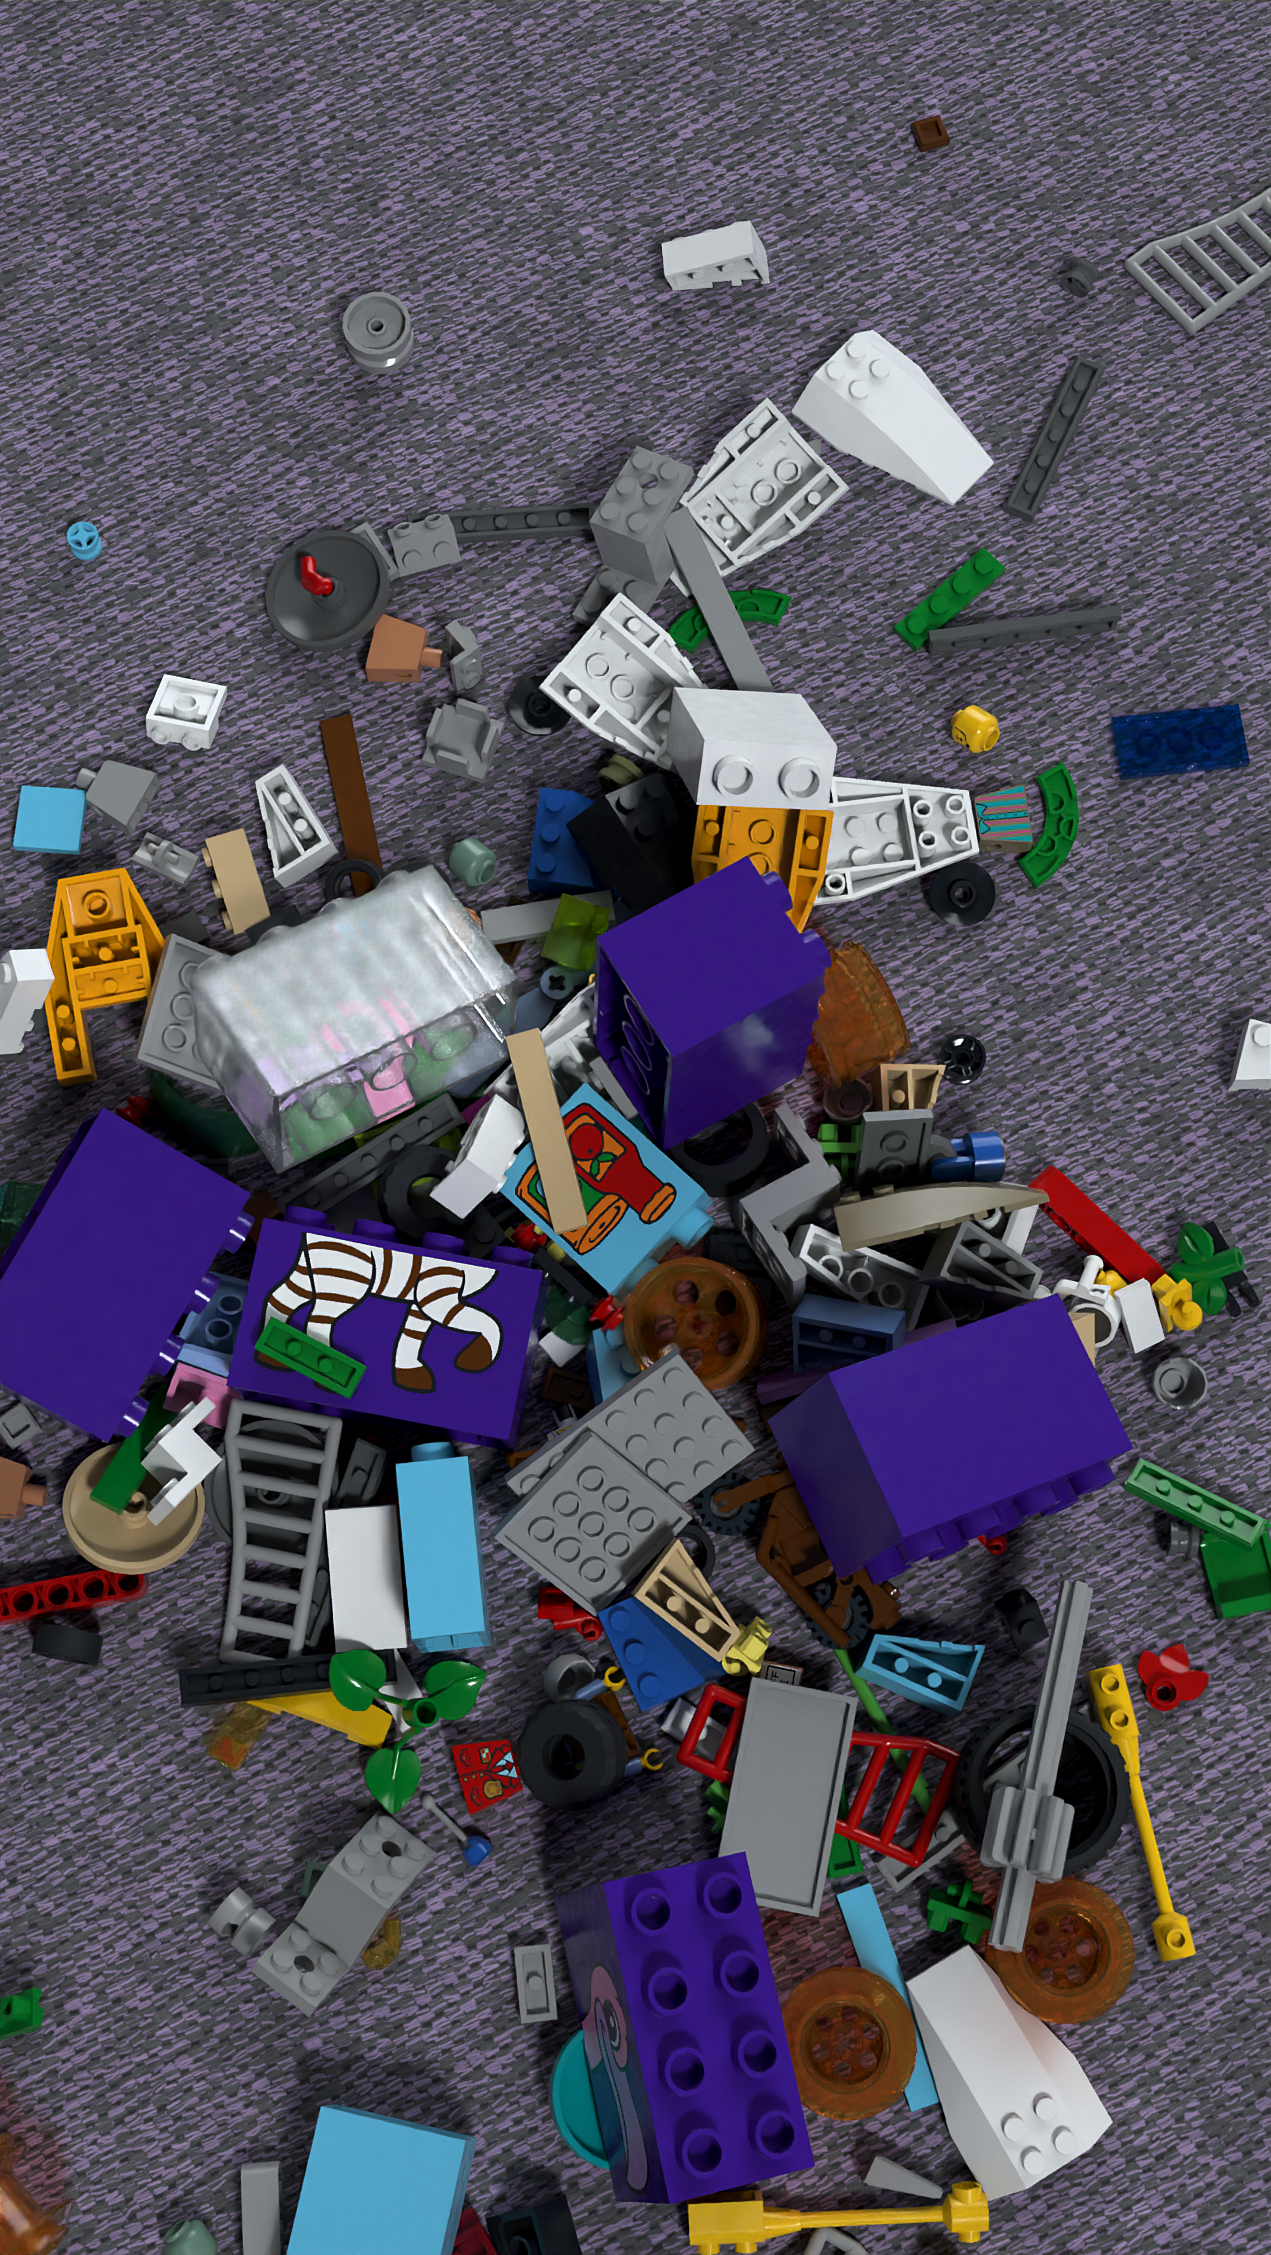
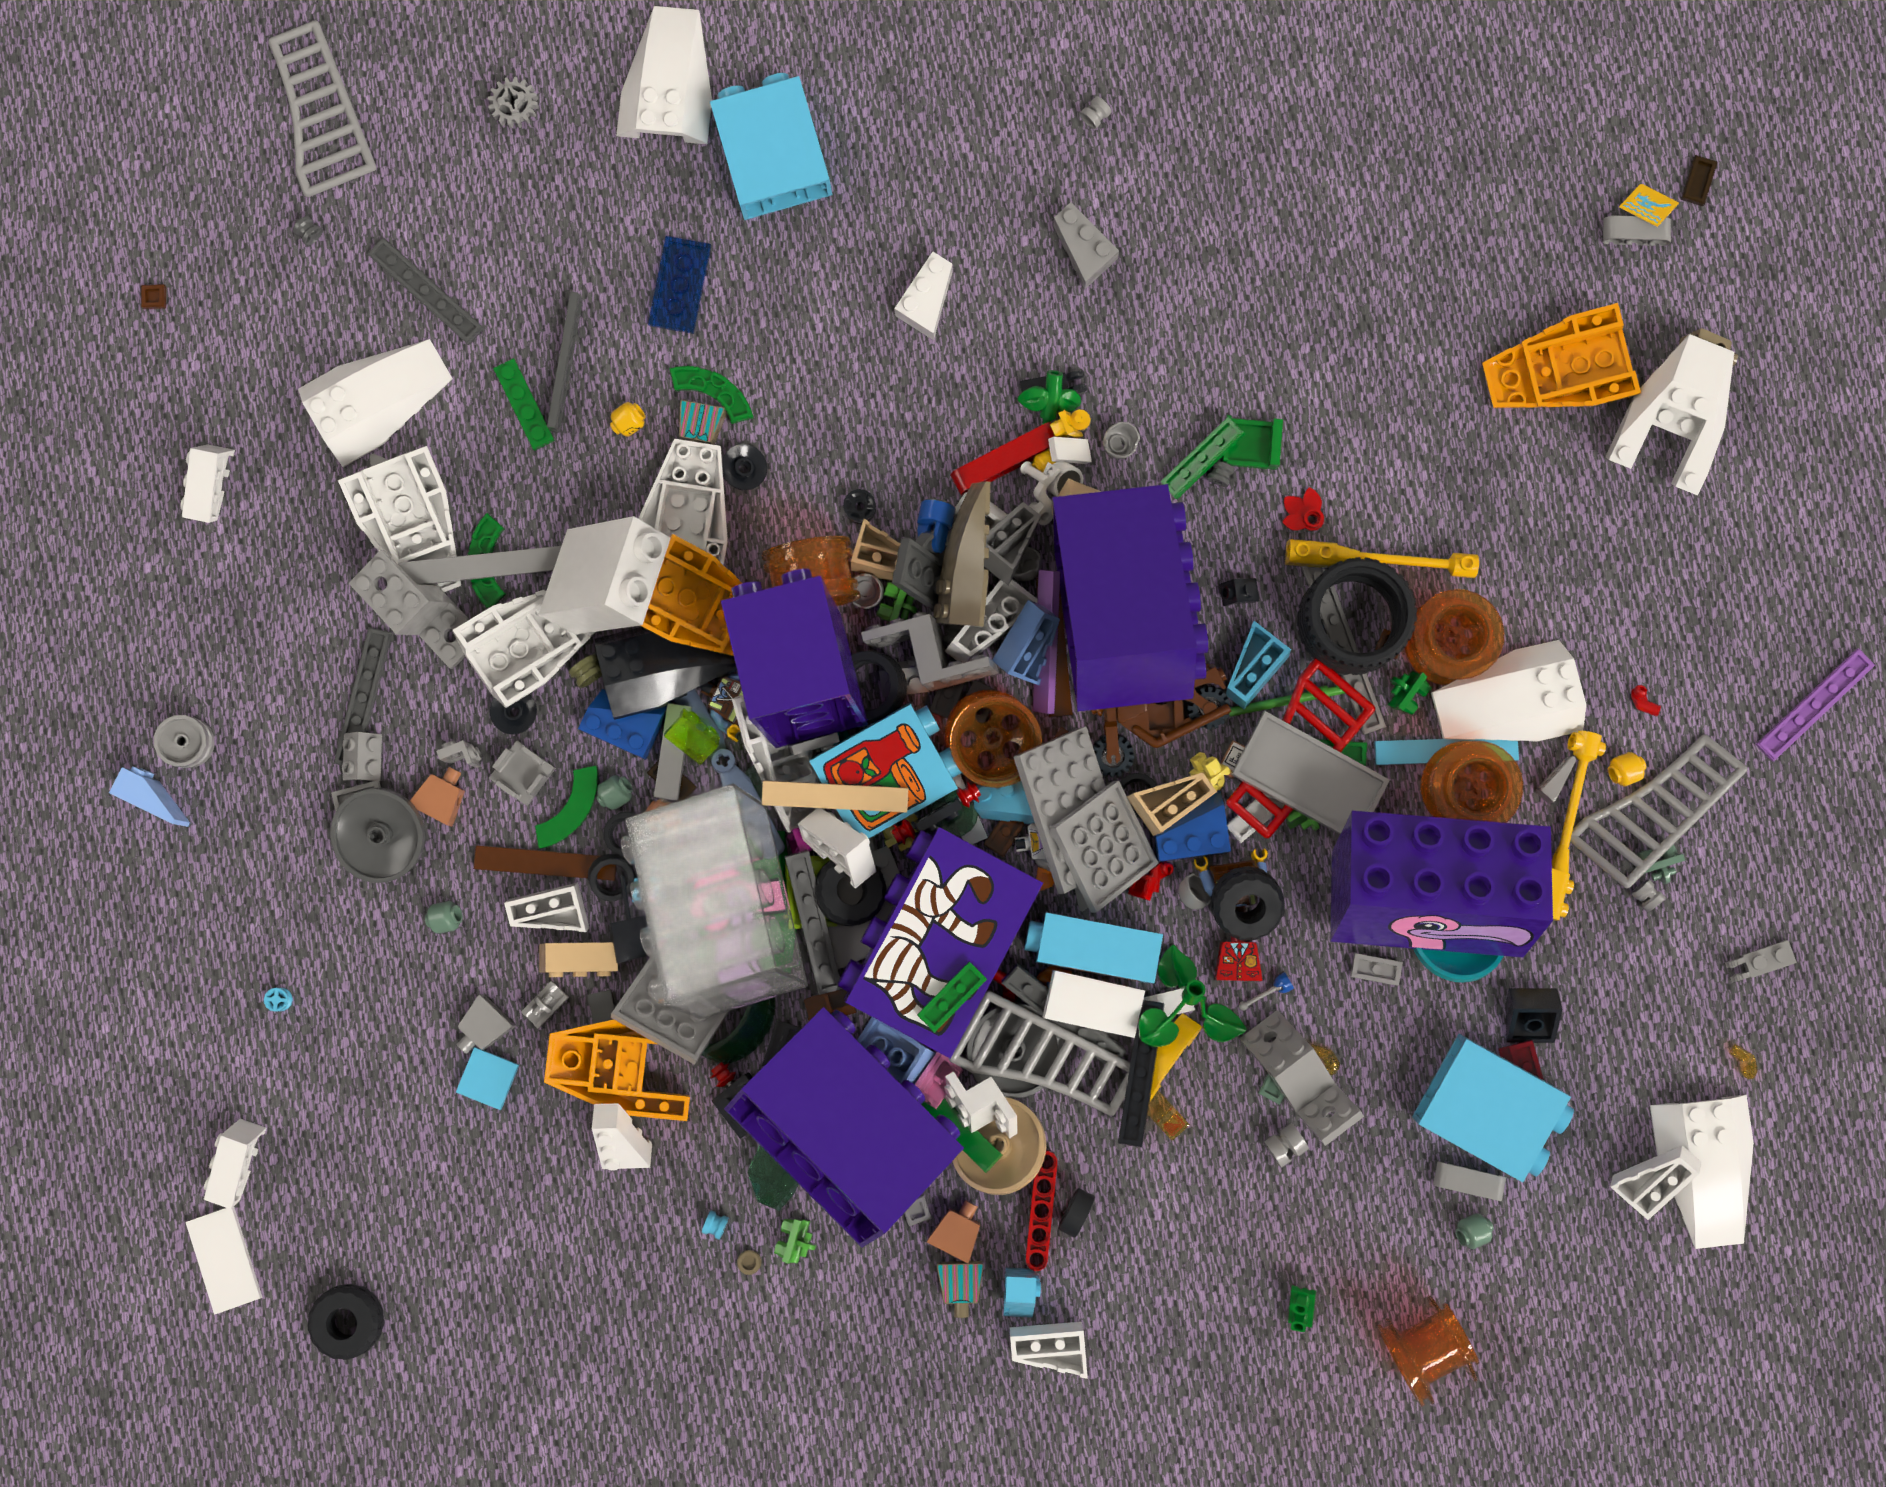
camera: 65 degrees left, 10 degrees up
(185, 712) = (436, 961): white plate -> none
(245, 703) = (443, 917): none -> sand green head
(297, 312) = (147, 793): none -> light blue slope
(312, 580) = (368, 844): red arm -> none
(433, 822) = (574, 811): none -> green tile
(1029, 1826) = (1386, 630): light grey axle -> none

